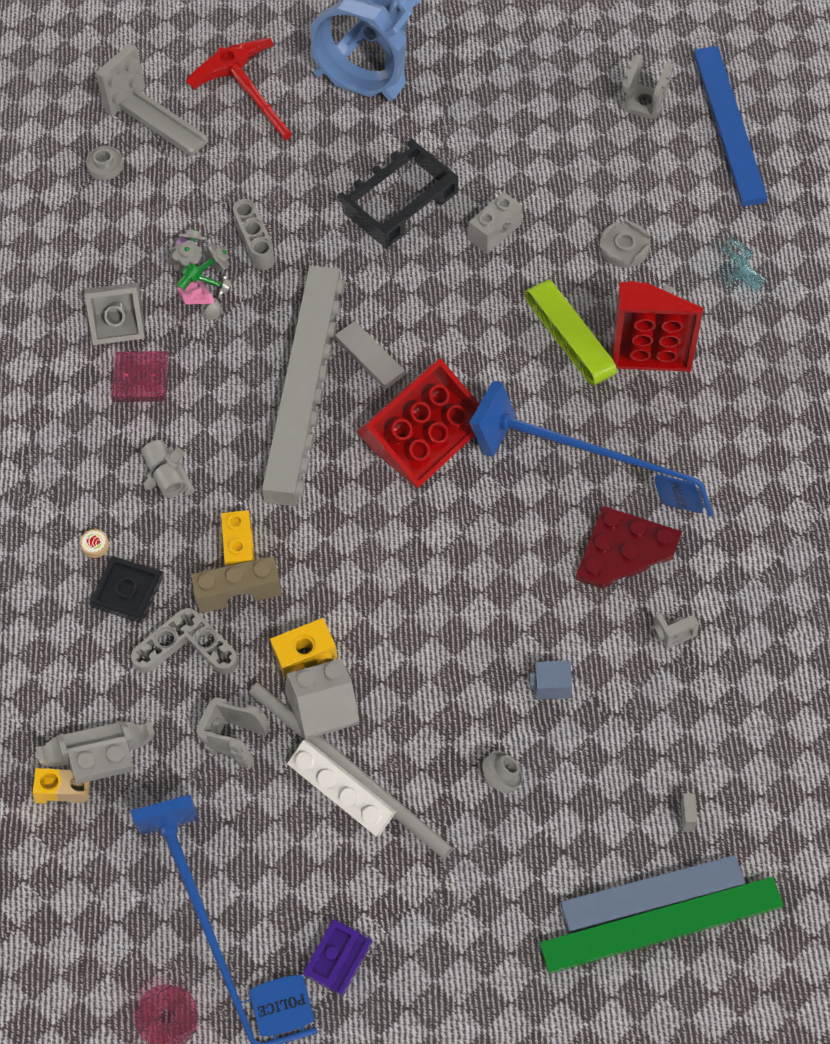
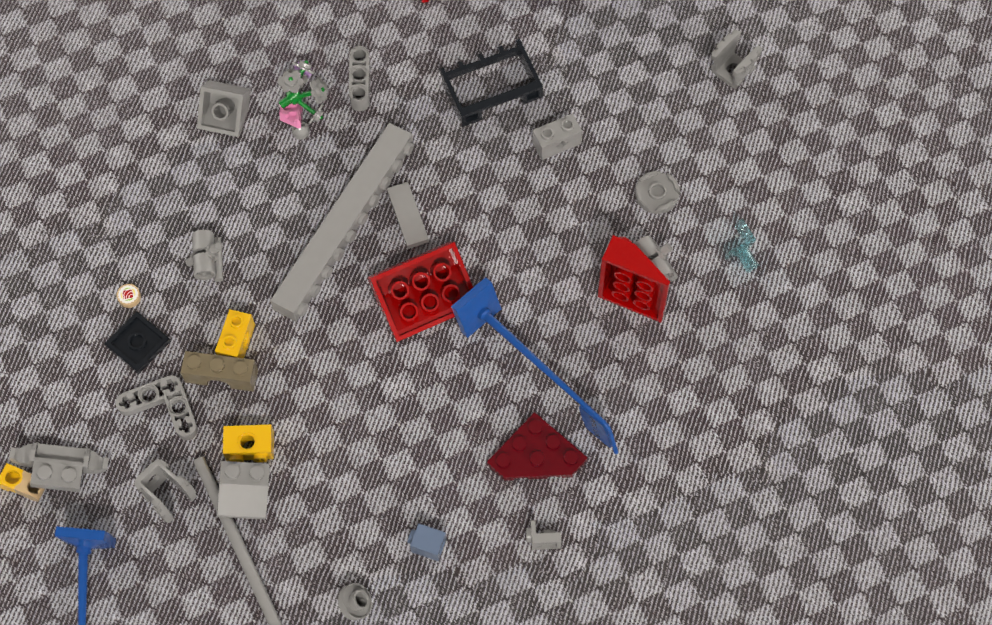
camera: 20 degrees right, 5 degrees up
(140, 376) = (220, 169): clear pink plate -> none
(341, 787) = (229, 566): white plate -> none
(570, 332) = (575, 254): lime beam -> none
(730, 126) = (794, 117): blue tile -> none

